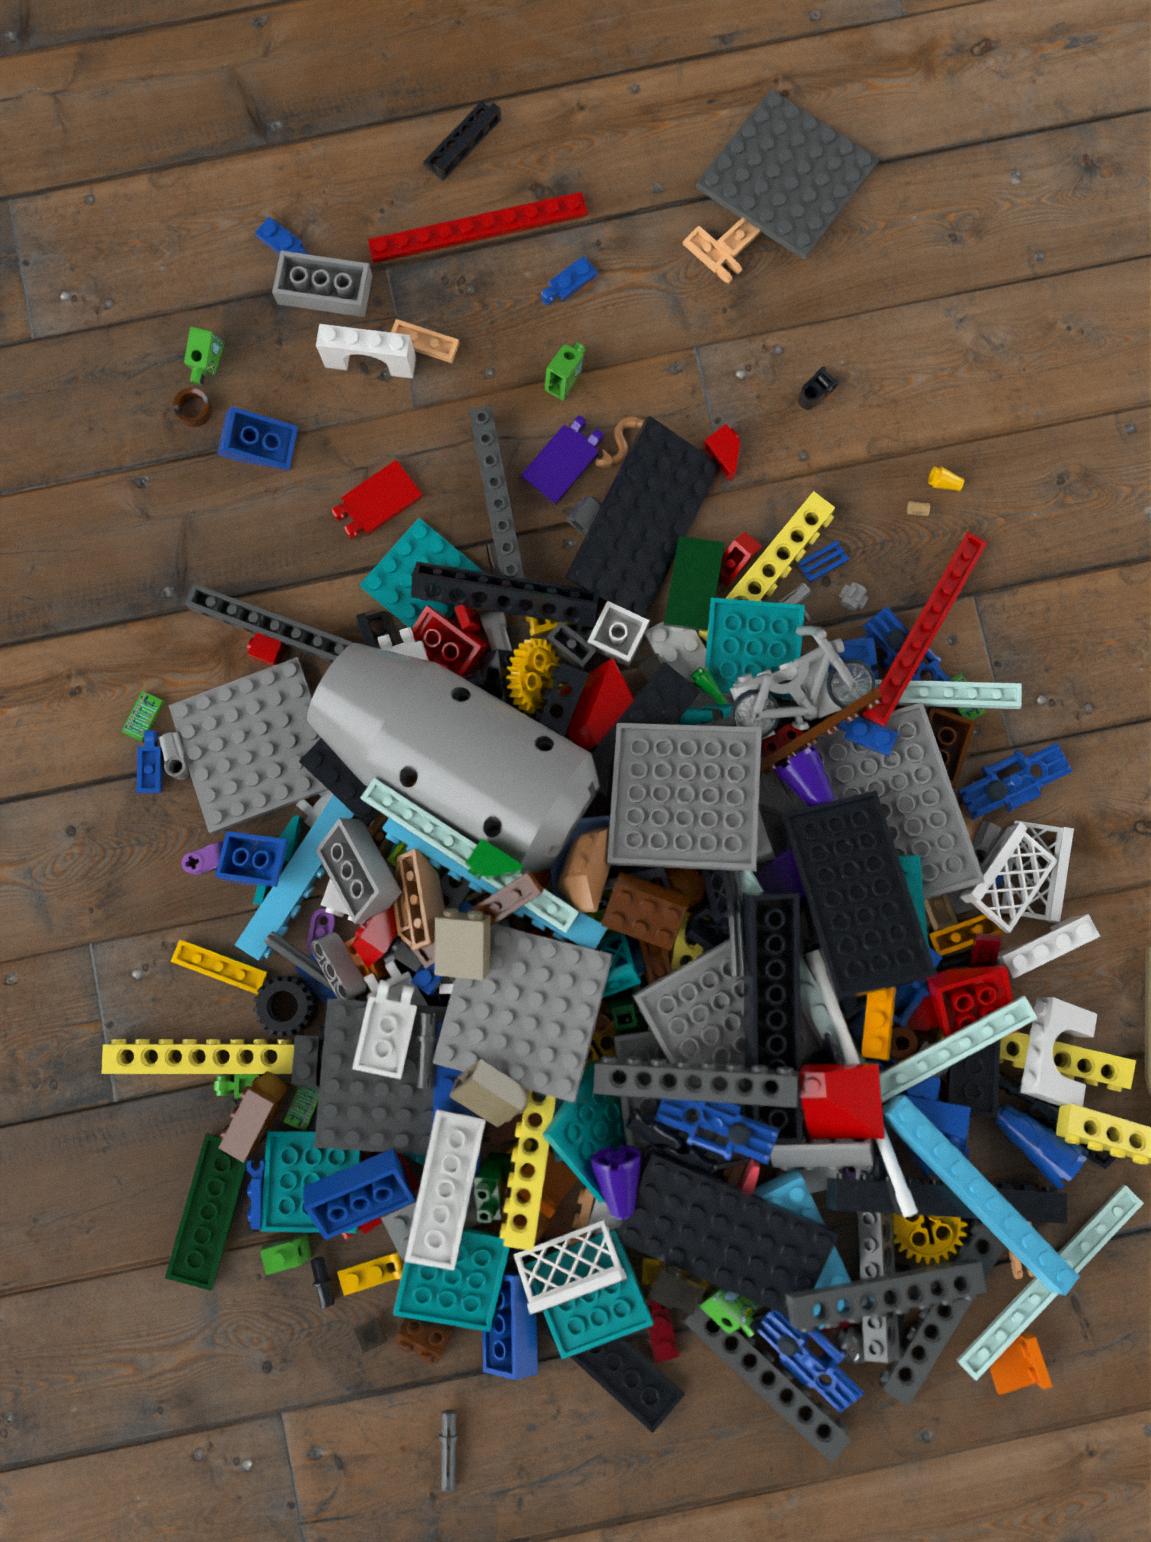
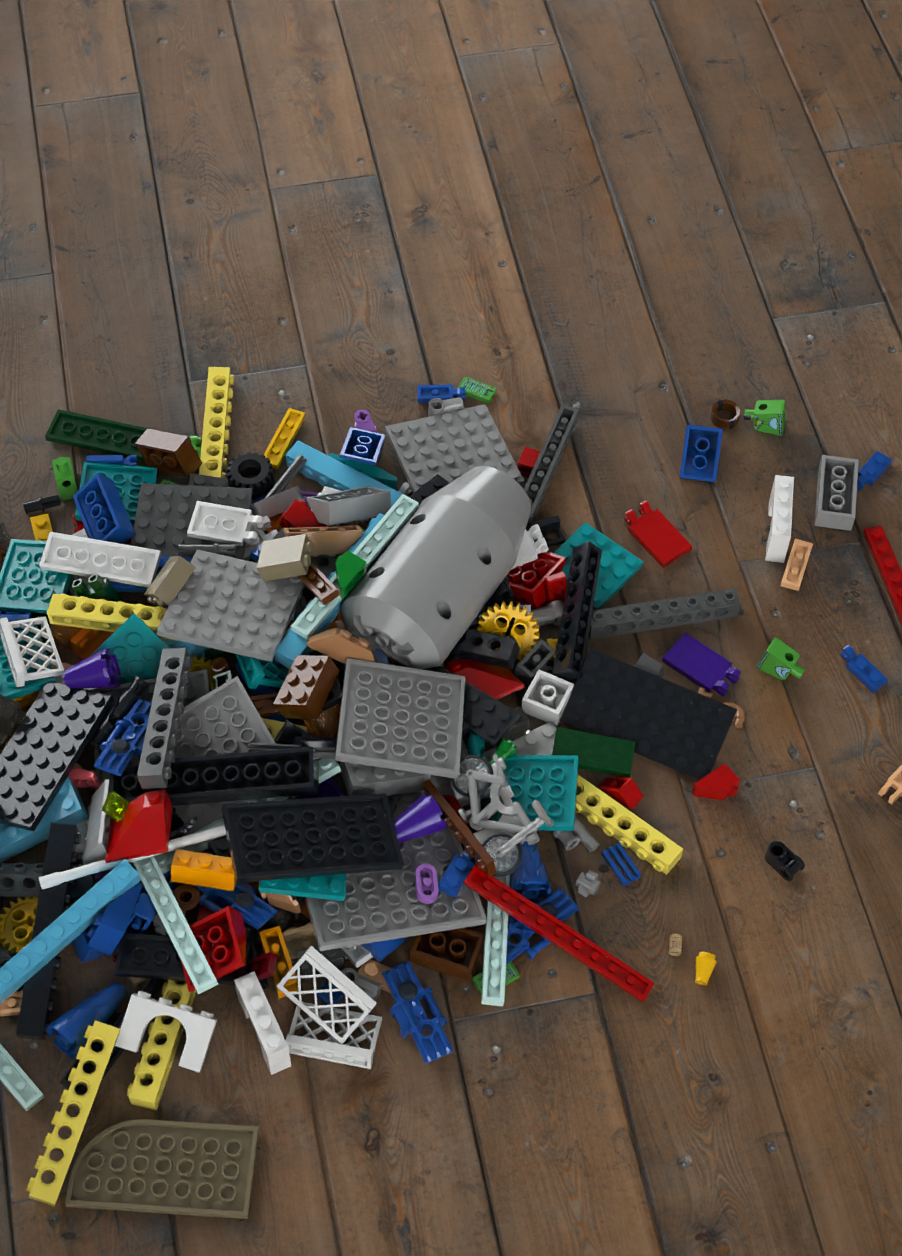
camera: 85 degrees right, 25 degrees down
(814, 1133) = (115, 806): none -> clear neon green plate
(889, 768) = (426, 885): none -> medium lavender plate

